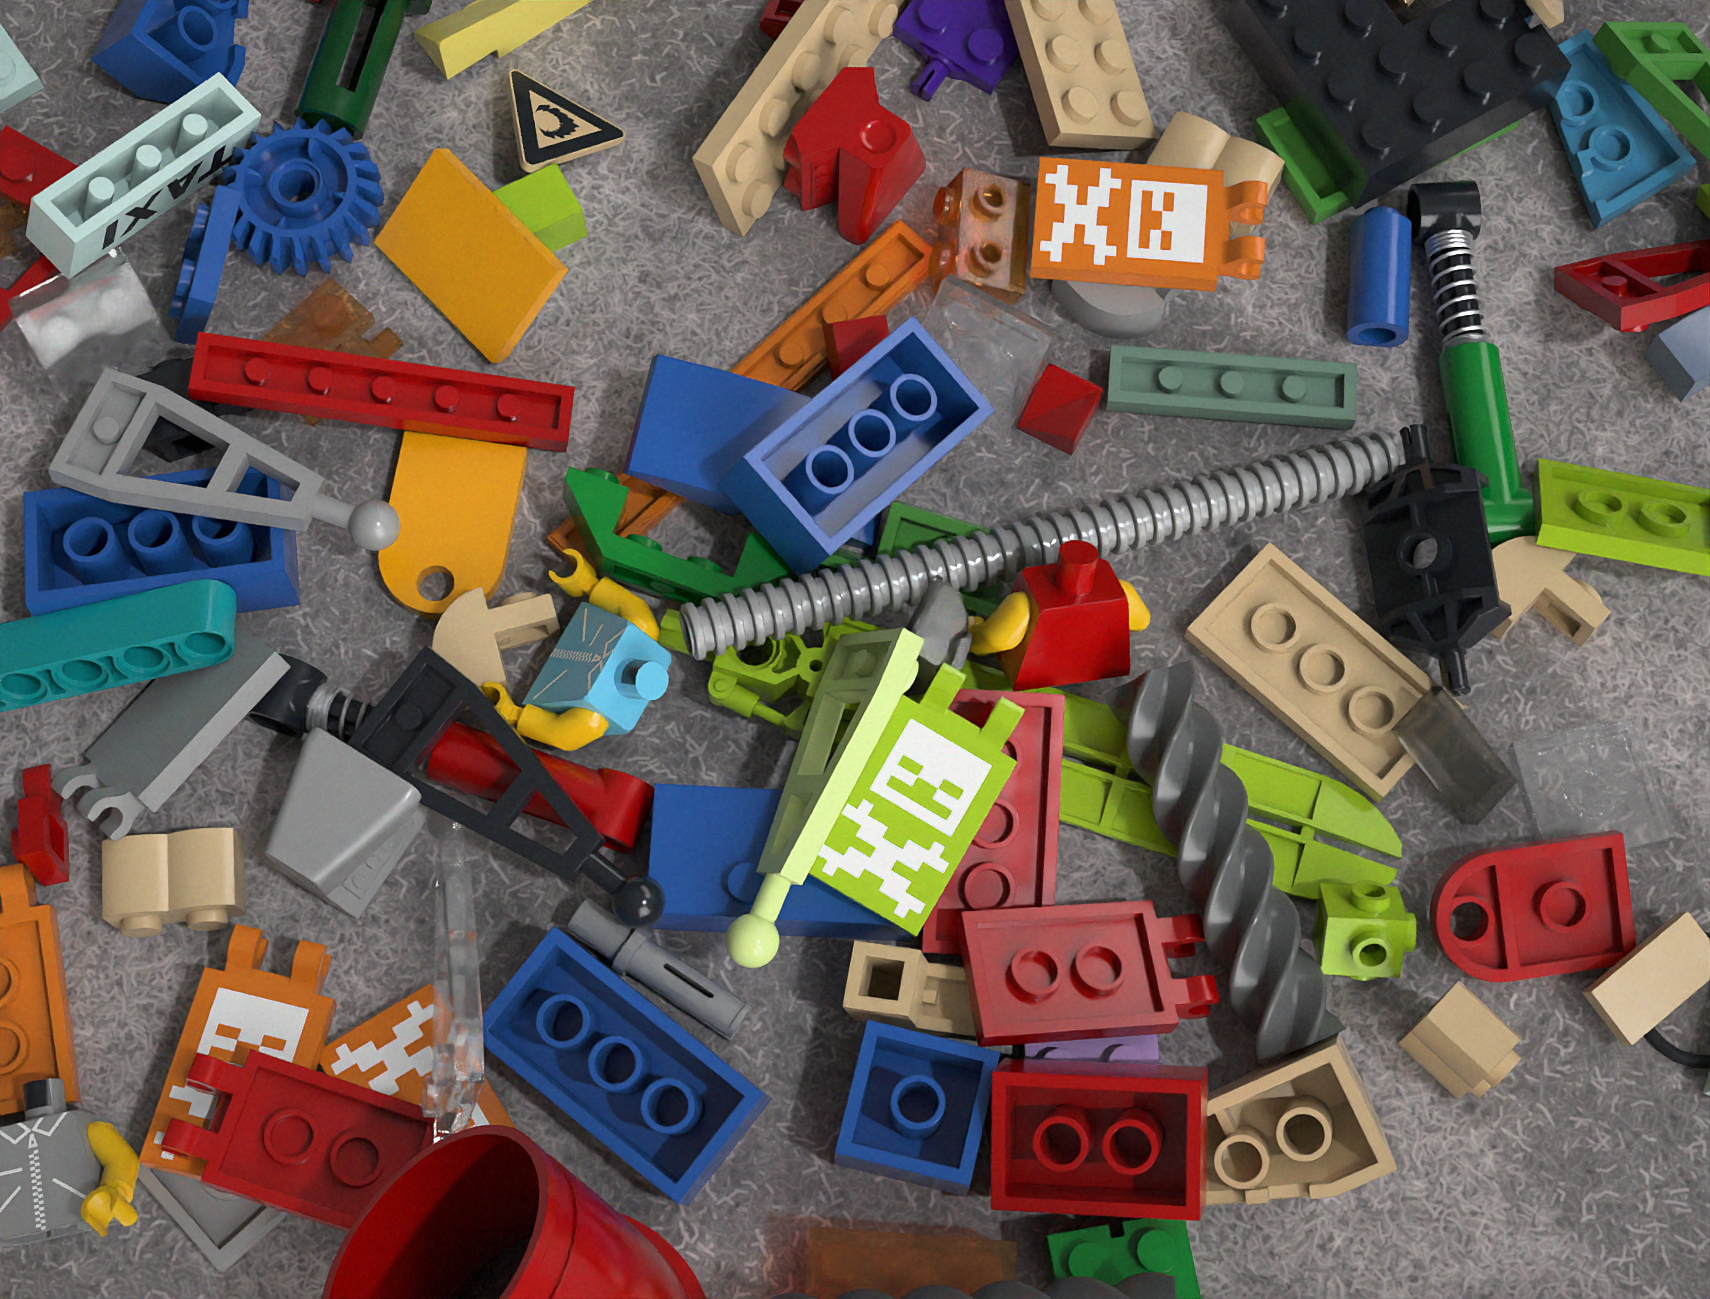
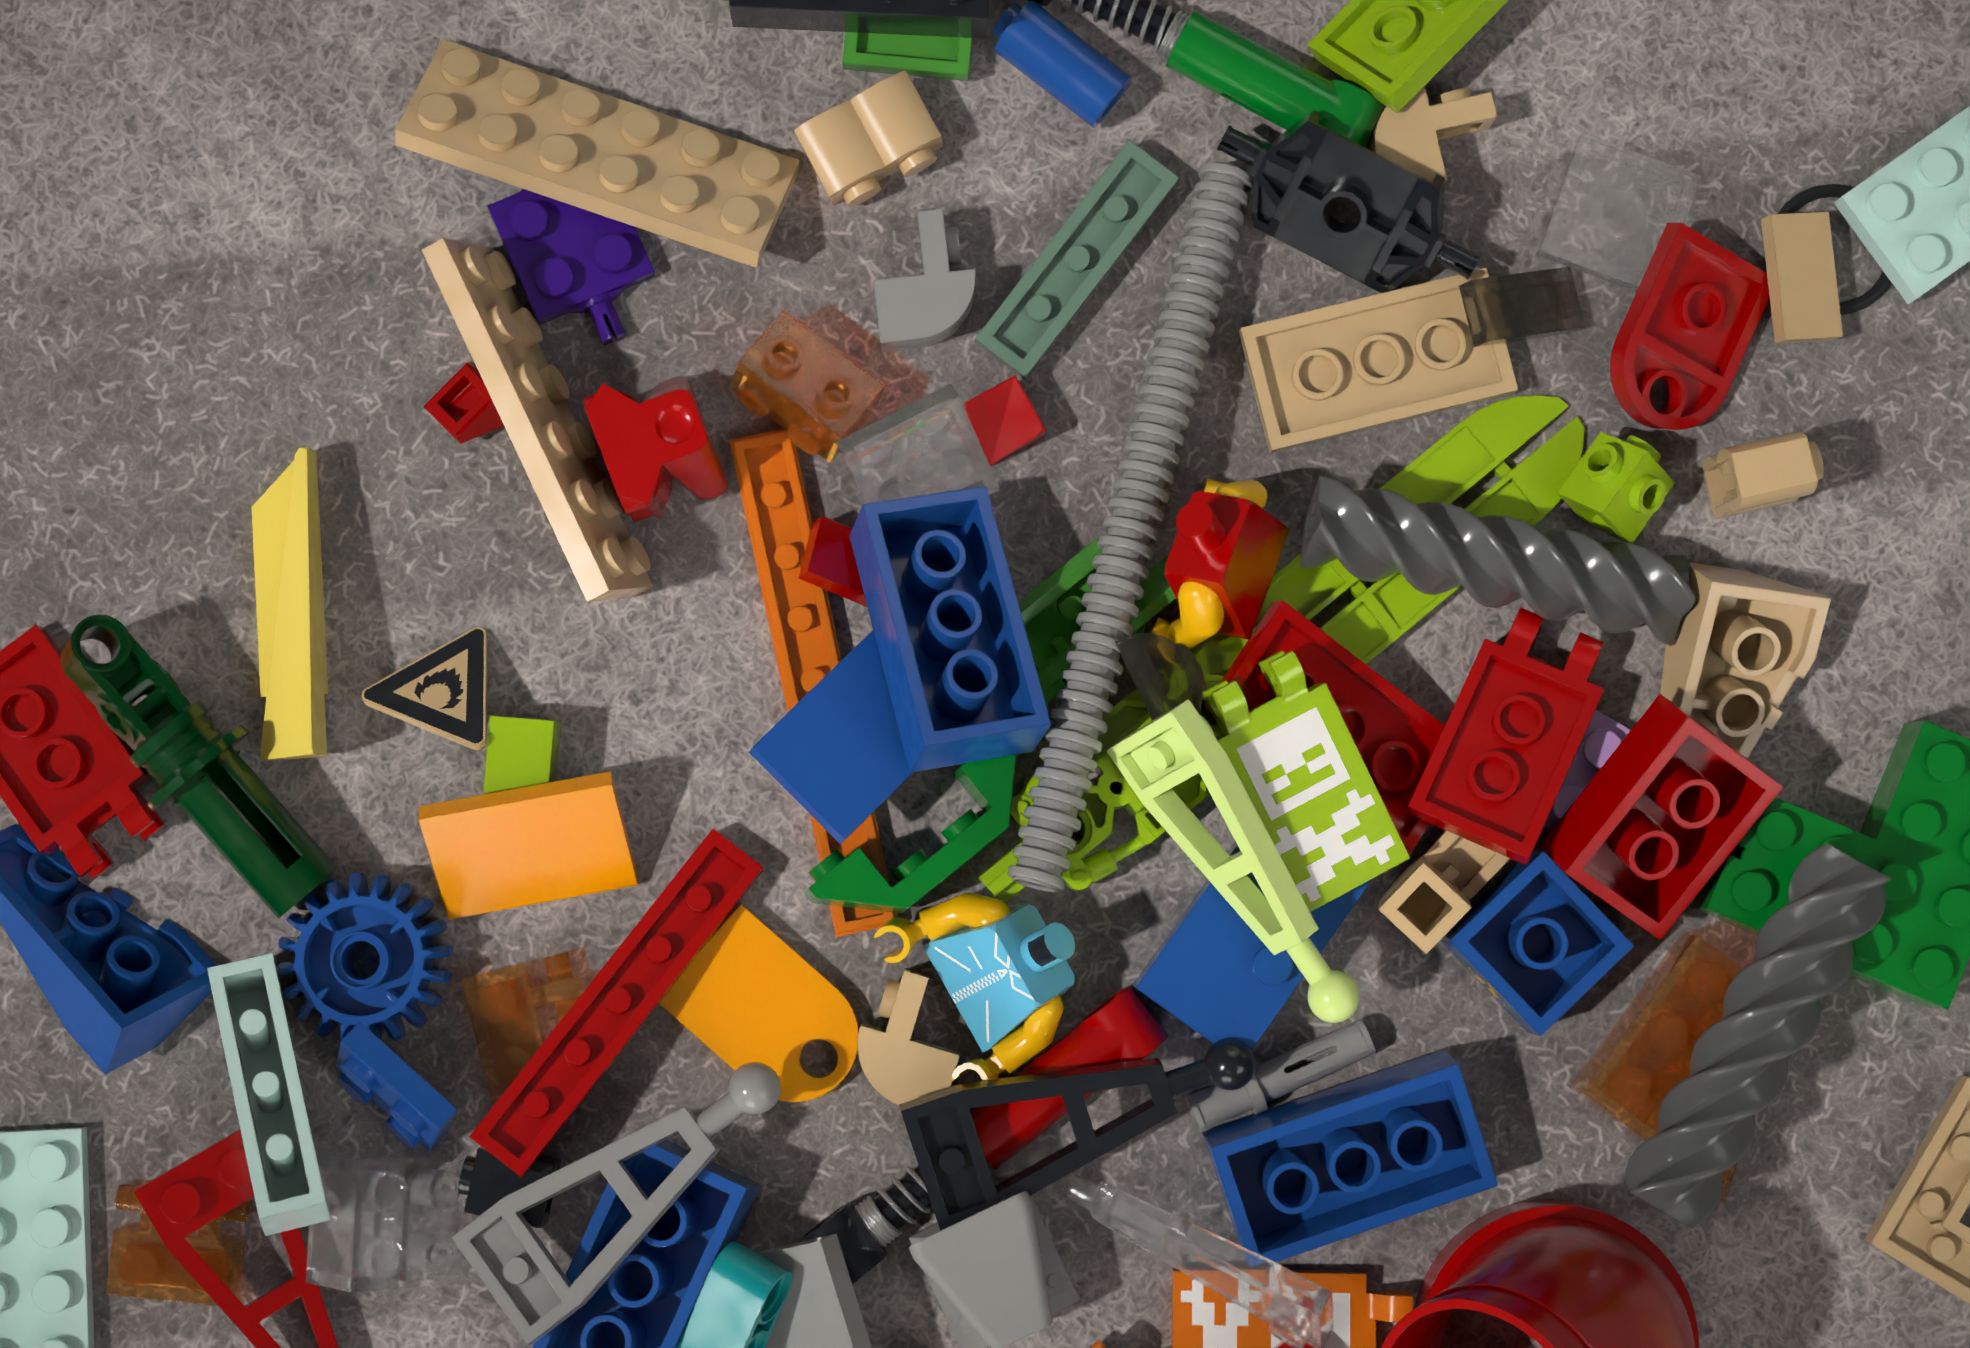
camera: 60 degrees left, 15 degrees up
(1143, 225) = (892, 243): orange tile -> none

